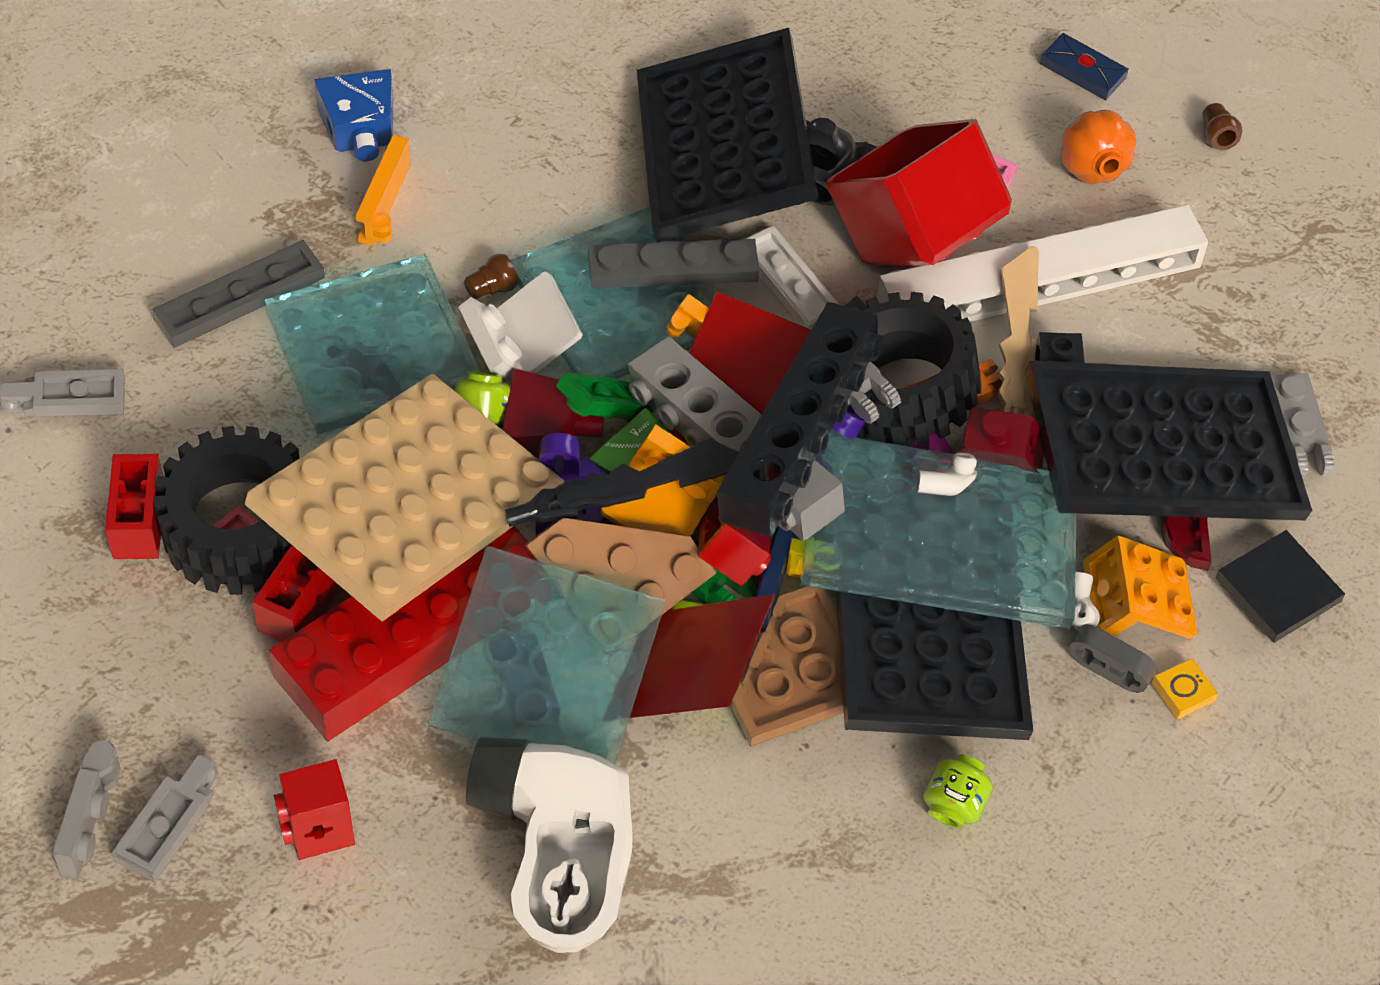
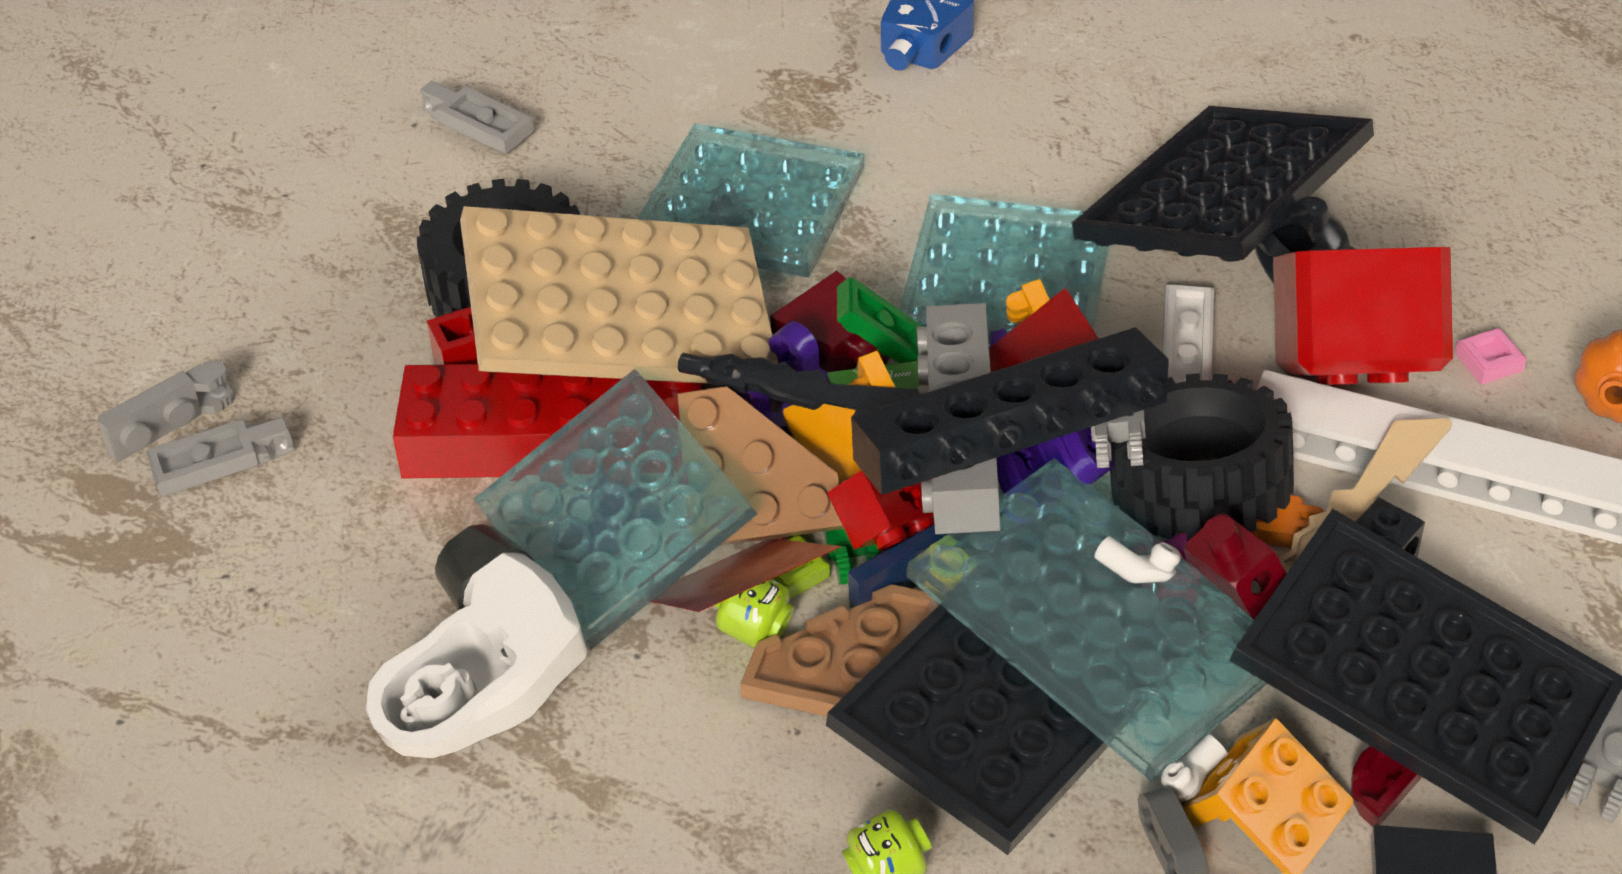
camera: 45 degrees right, 10 degrees down
(131, 513) = (406, 210): red brick -> none
(237, 293) = (679, 110): dark grey plate -> none
(314, 810) = (314, 506): red brick -> none
(383, 192) = (881, 92): light orange hinge -> none
(486, 394) = (786, 278): lime head -> none
(493, 277) = (904, 202): reddish brown piece -> none
(524, 330) = (876, 253): white bracket -> none
(673, 263) = (1075, 265): dark grey plate -> none

